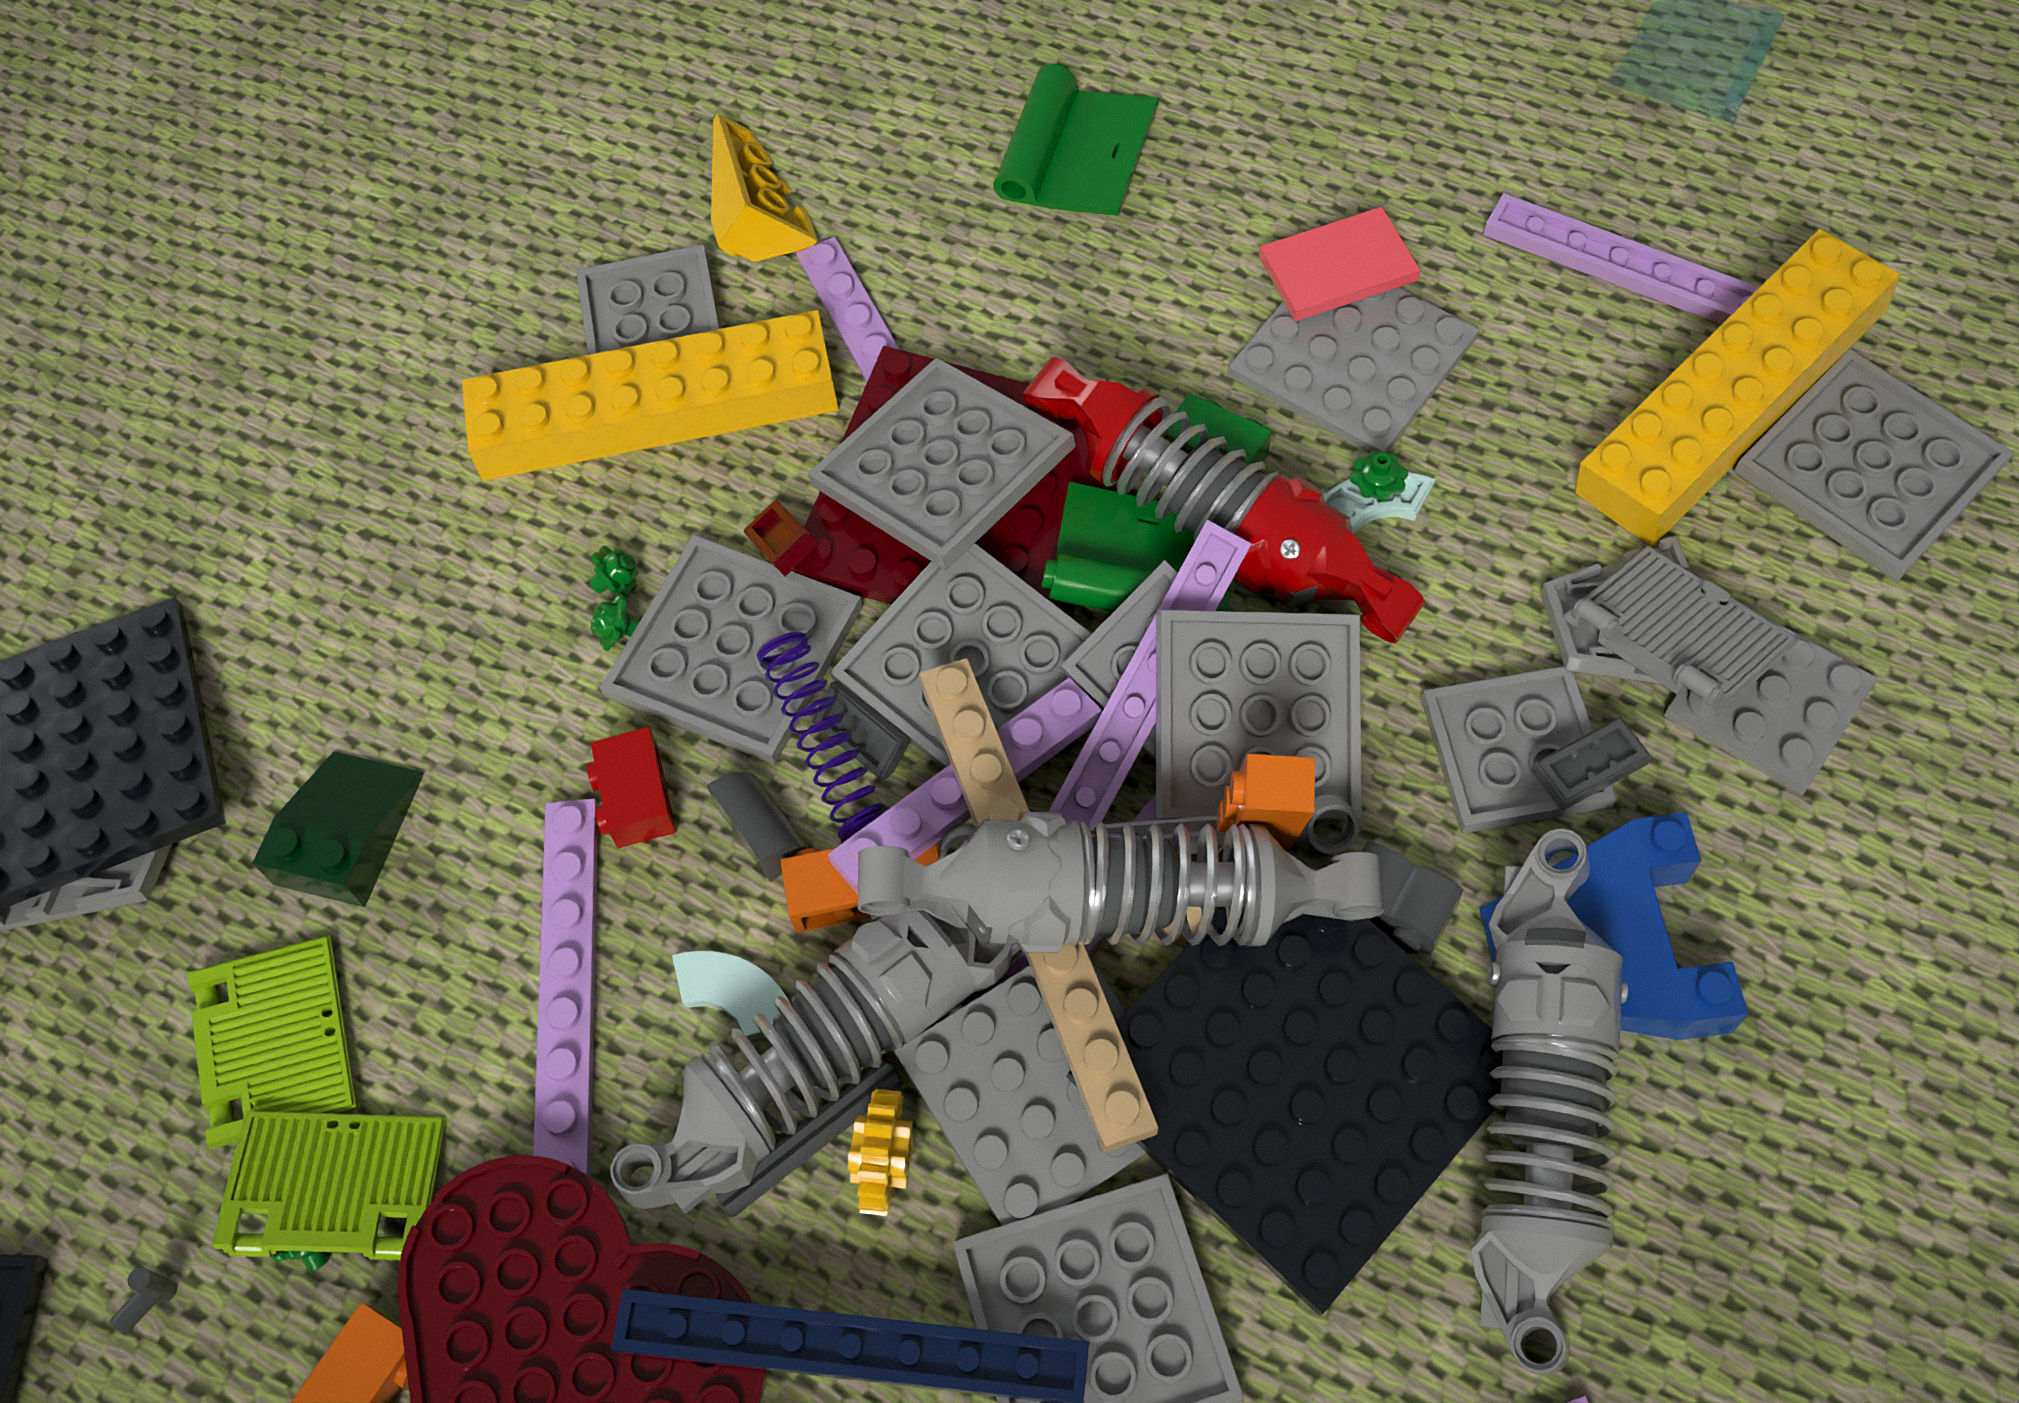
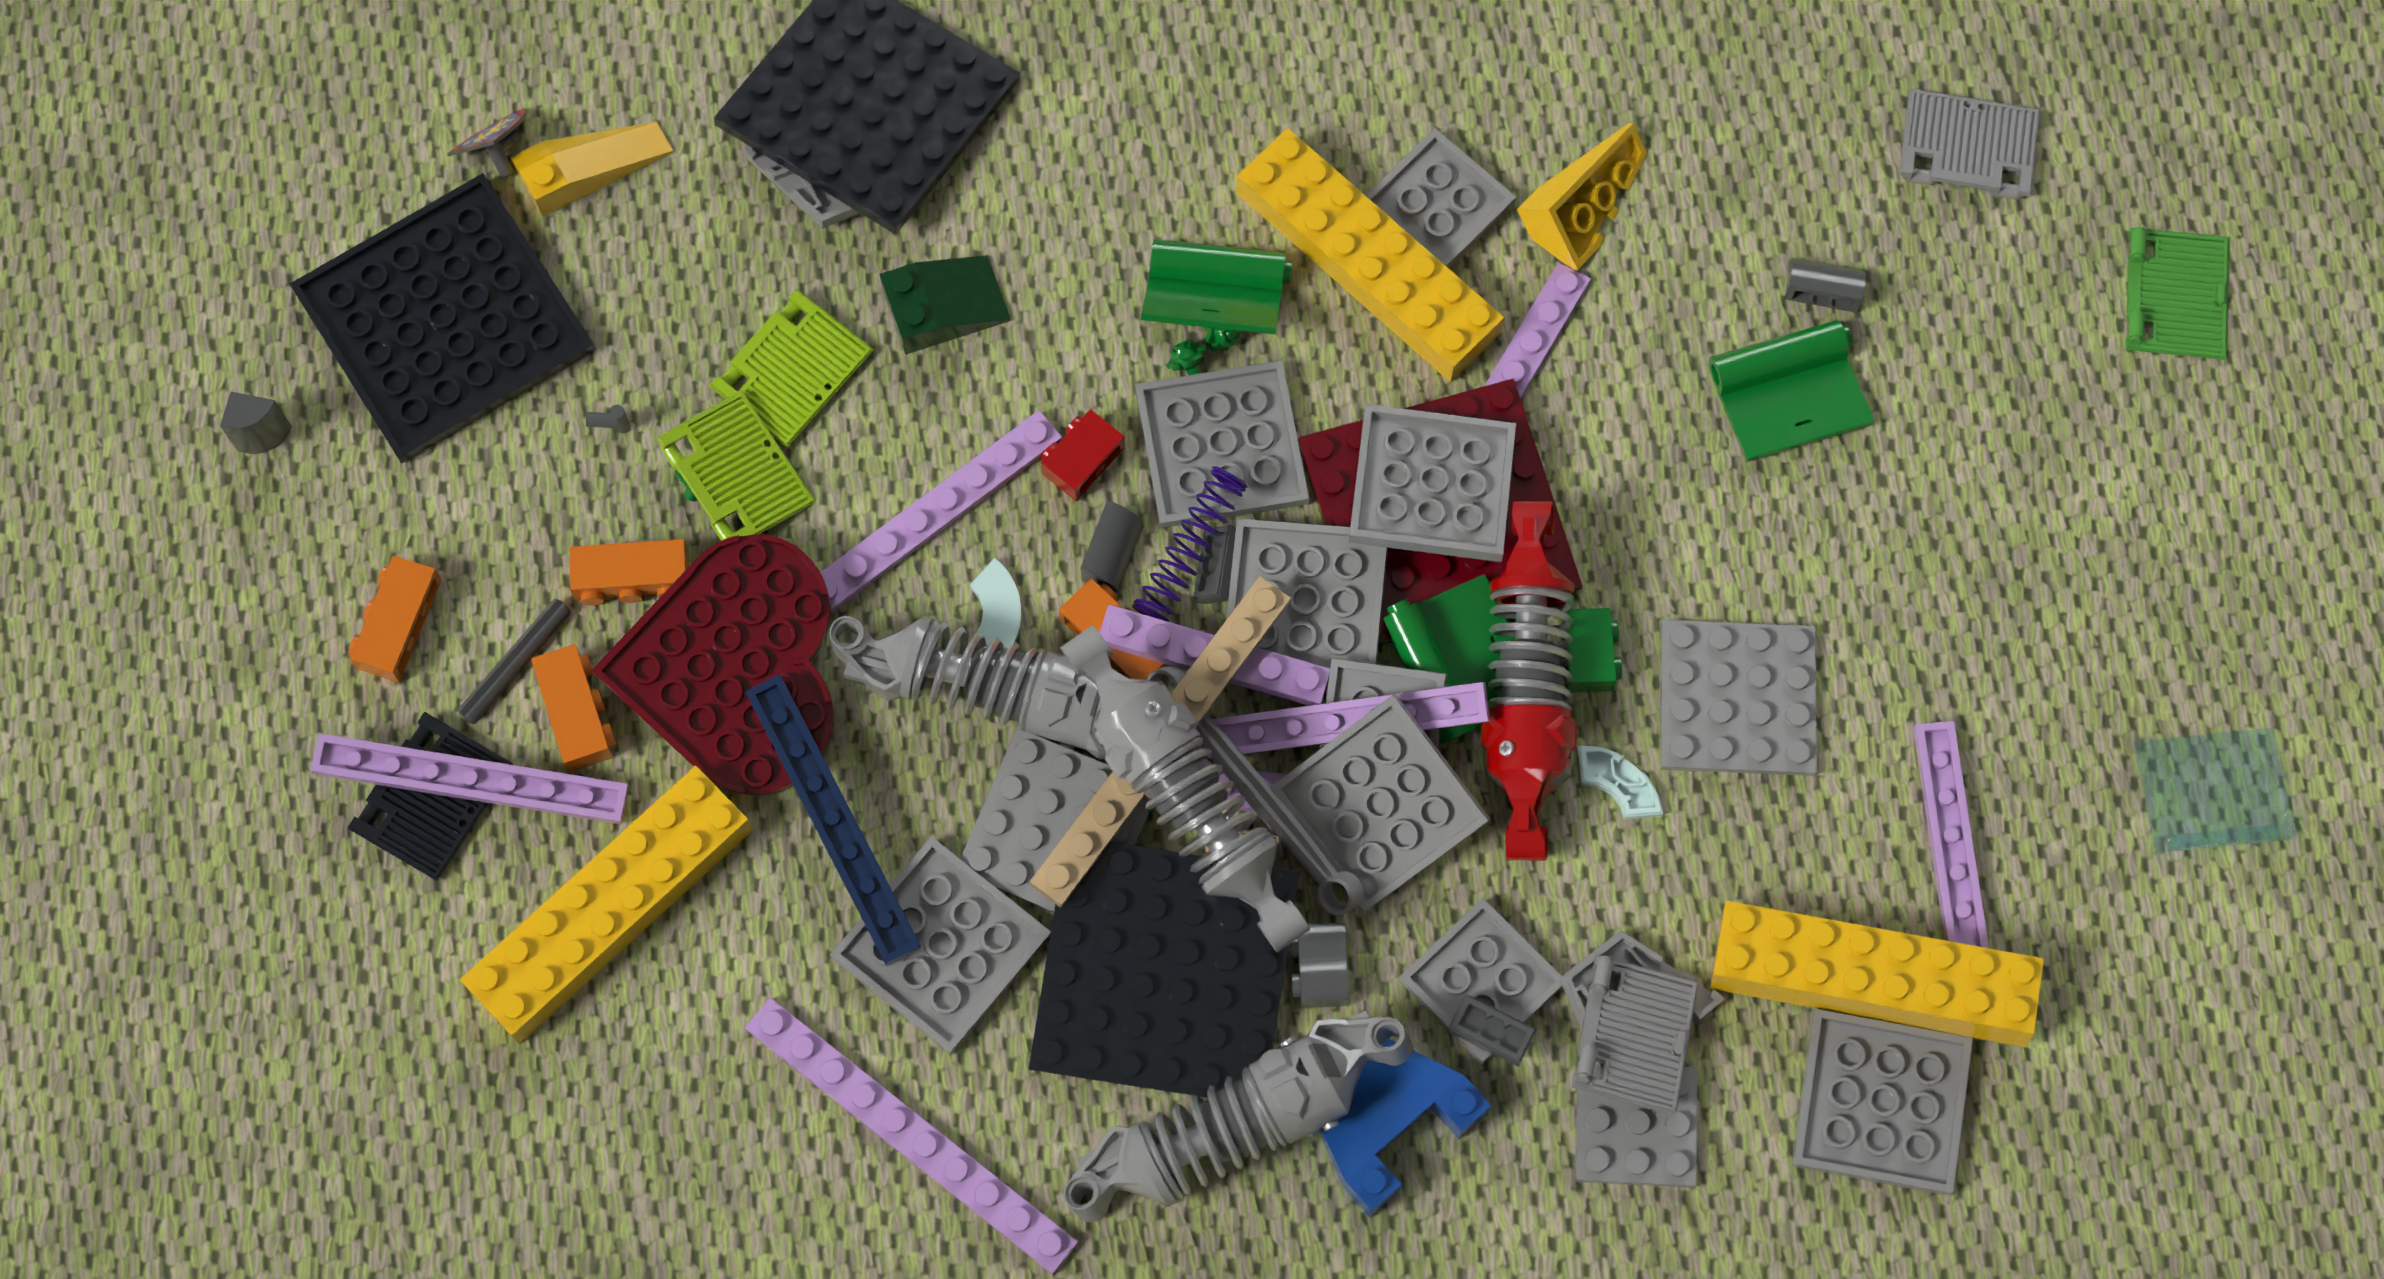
camera: 50 degrees right, 10 degrees up
(560, 545) = (1215, 286): none -> green door
(780, 537) = (1316, 418): dark red tile -> none
(811, 1136) = (940, 716): dark grey axle -> none
(880, 1152) = (952, 761): yellow gear -> none
(997, 66) = (1825, 285): none -> dark grey brick
(1270, 793) = (1298, 840): orange brick -> none
(1338, 263) = (1798, 642): coral tile -> none
(1379, 475) = (1631, 773): green plant -> none

